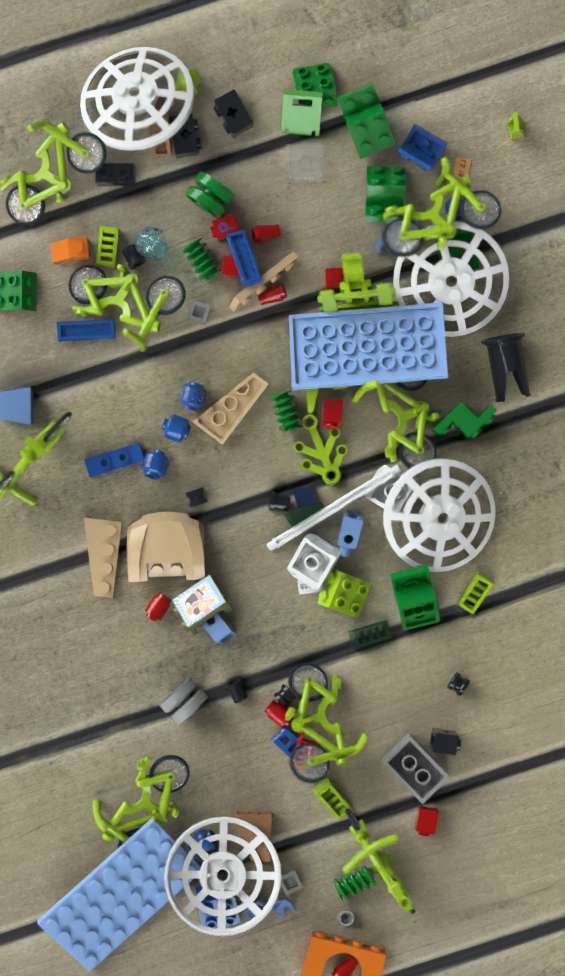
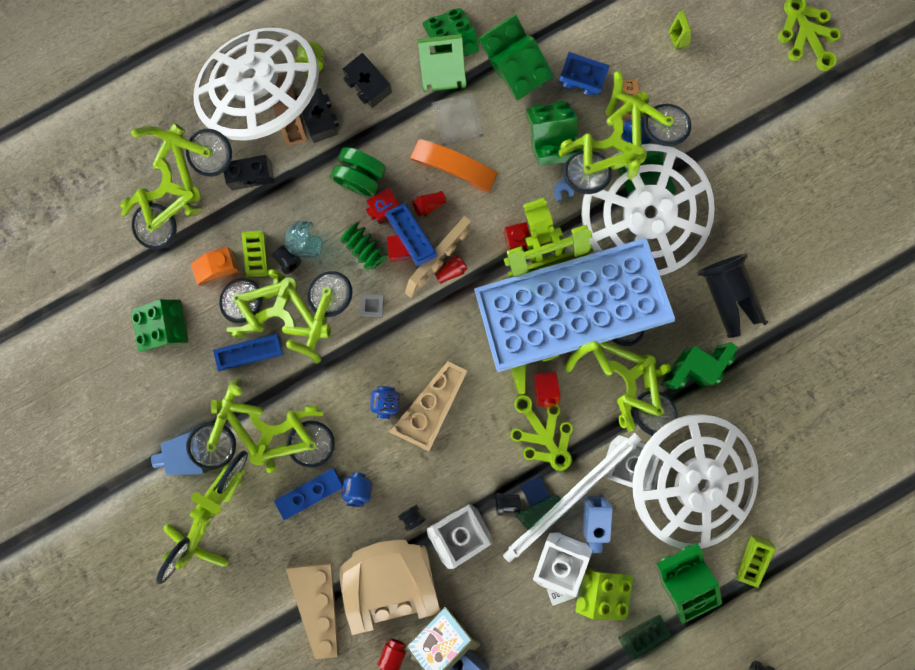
camera: 10 degrees left, 5 degrees down
(45, 402) = (214, 444): none -> piece
(176, 428) = (372, 443): blue head -> none
(233, 520) = (459, 536): none -> white slope
(285, 411) = (494, 398): green piece -> none
(294, 203) = (454, 164): none -> orange slope

